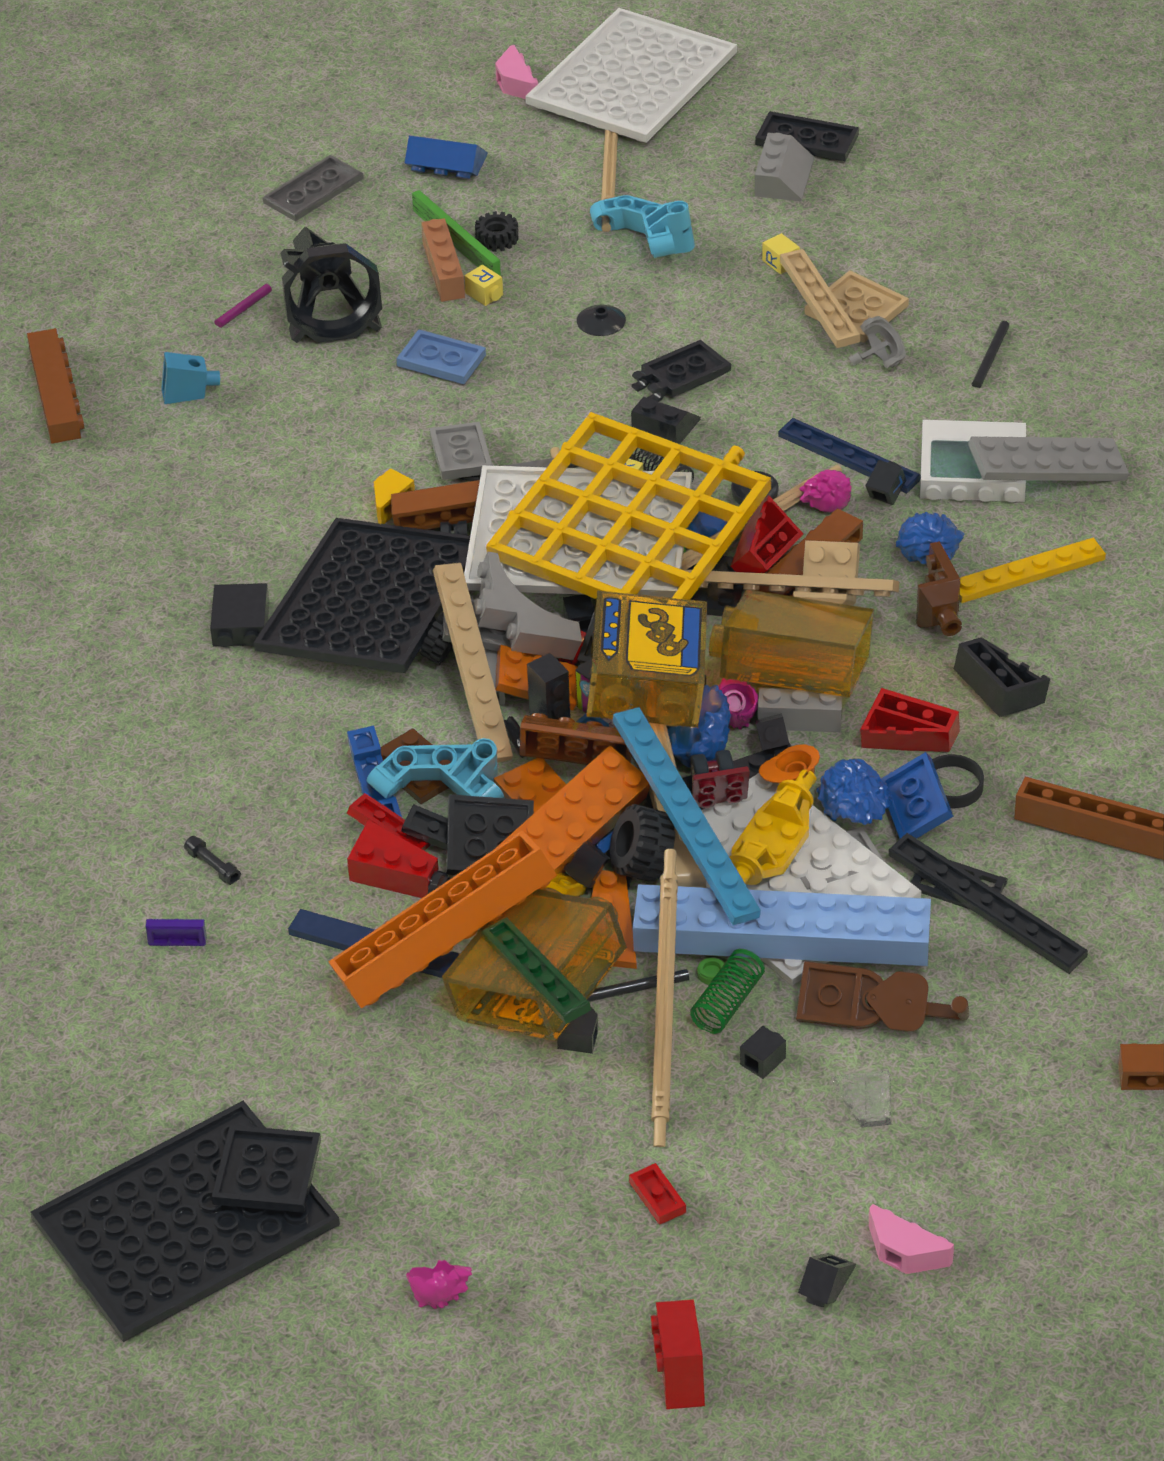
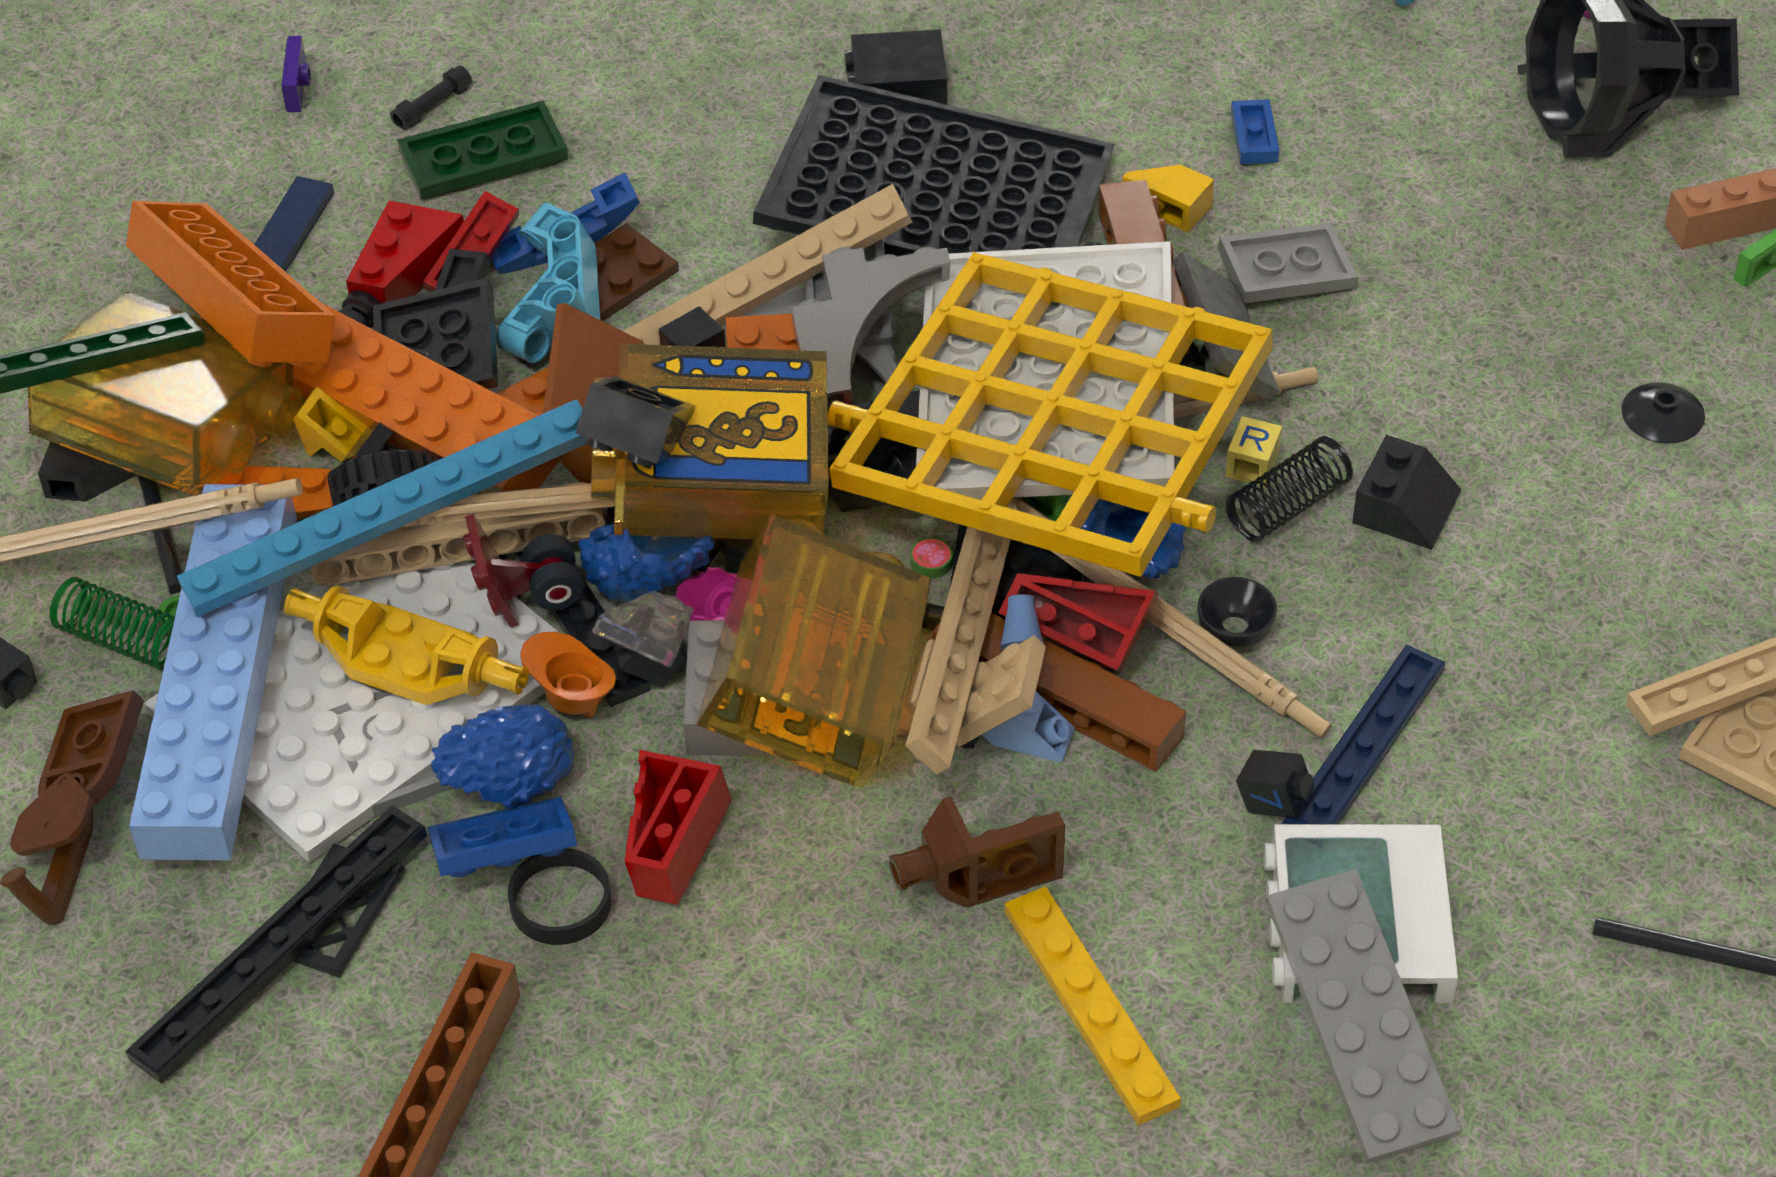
camera: 85 degrees right, 5 degrees up
(278, 829) = (482, 149): none -> dark green plate
(332, 457) = (1254, 131): none -> blue plate
(441, 356) = (1513, 227): medium blue plate -> none
(483, 285) = (1699, 258): light yellow brick -> none
(665, 661) = (633, 420): none -> black slope
(680, 370) = (1542, 513): black tile -> none
(784, 709) = (647, 625): none -> clear wing
(788, 559) = (1020, 621): none -> medium blue cone
(827, 491) = (1245, 708): dark pink hair -> none
(892, 338) = (1668, 777): light grey helmet -> none
(924, 529) = (1131, 845): blue hair -> none
(999, 680) = (783, 944): black wedge -> none

